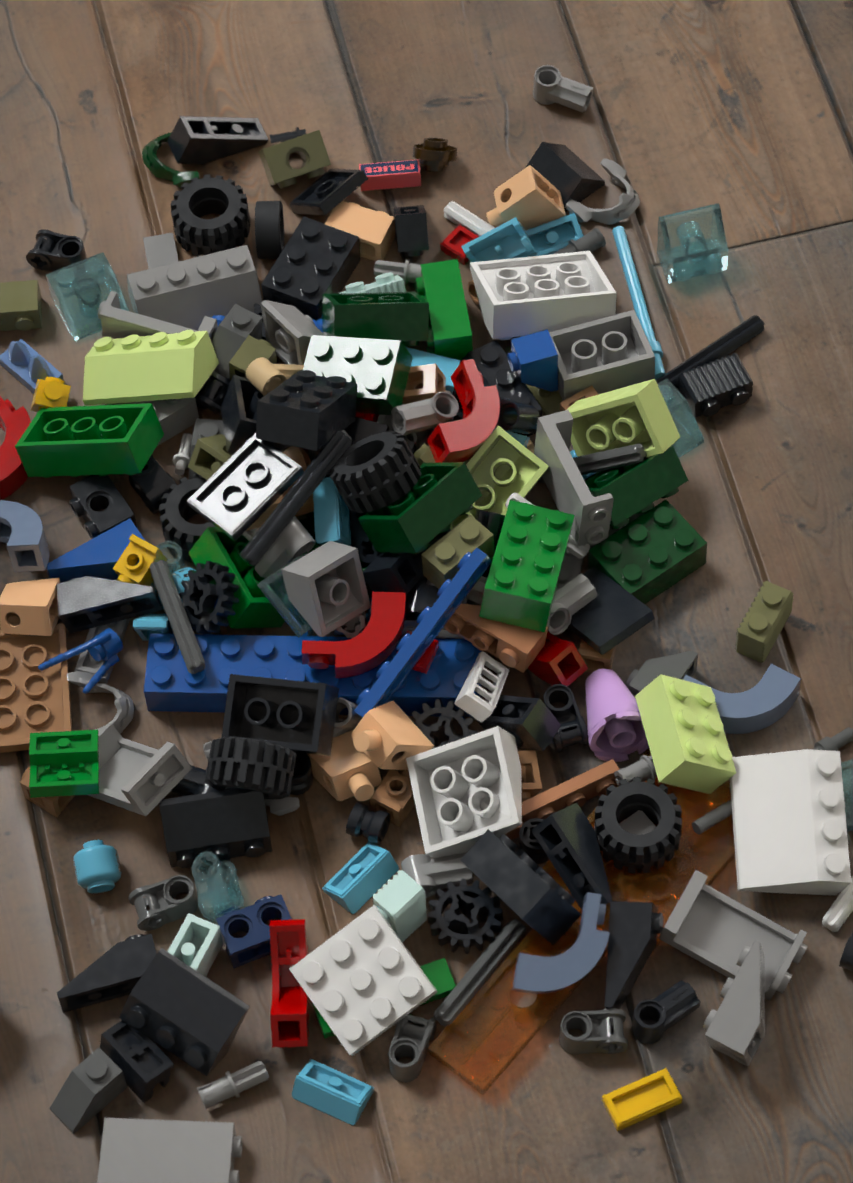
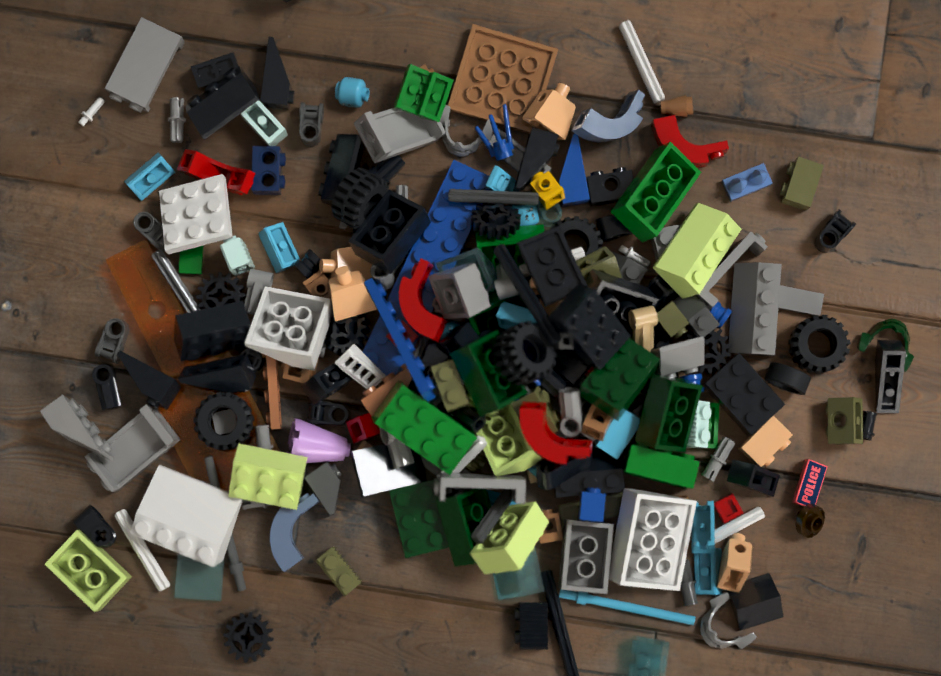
camera: 105 degrees right, 25 degrees up
(50, 393) = (711, 183): yellow brick -> none
(79, 292) = (787, 238): clear light blue slope -> none
(88, 1090) = (209, 37): dark grey slope -> none
(216, 886) = (302, 156): clear light blue piece -> none
(328, 191) = (805, 432): black tile -> none
(552, 88) = (827, 637): light grey piece -> none
(555, 973) = (149, 338): sand blue arch -> none
(641, 1099) = (62, 350): yellow tile -> none

